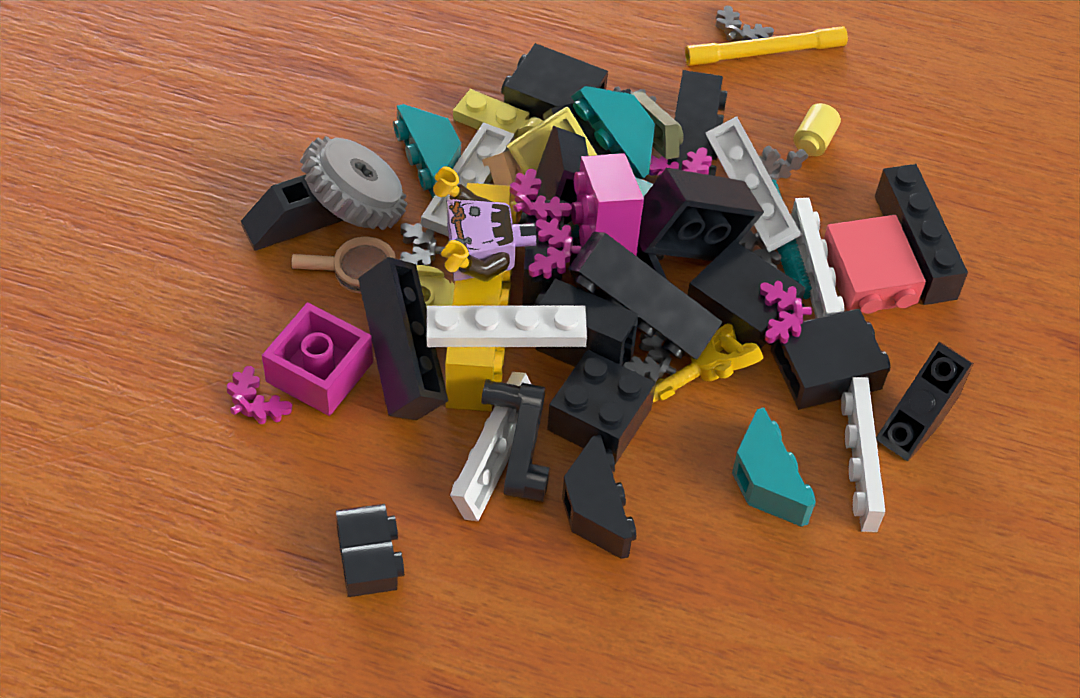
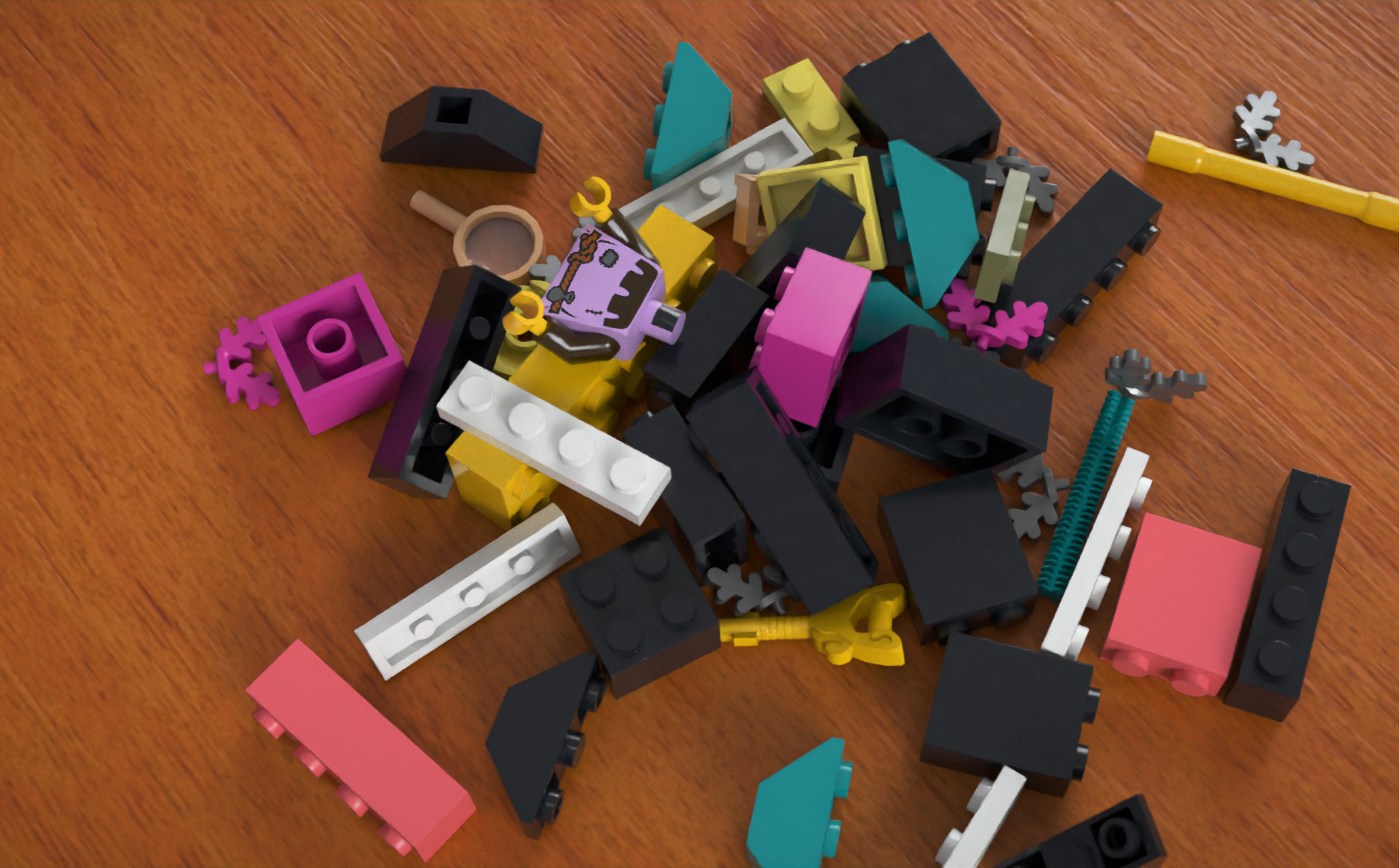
camera: 40 degrees right, 10 degrees up
(353, 183) = (540, 128): light grey gear -> none
(368, 551) = (219, 644): black brick -> none
(496, 560) = (361, 751): none -> coral brick
(522, 477) = (472, 648): black beam -> none
(526, 189) = (726, 290): dark pink animal -> none
(555, 258) = (691, 378): dark pink animal -> none
(743, 163) = (1081, 383): white plate -> none
(787, 321) = (972, 634): dark pink animal -> none
(817, 129) = (1254, 353): light yellow brick -> none

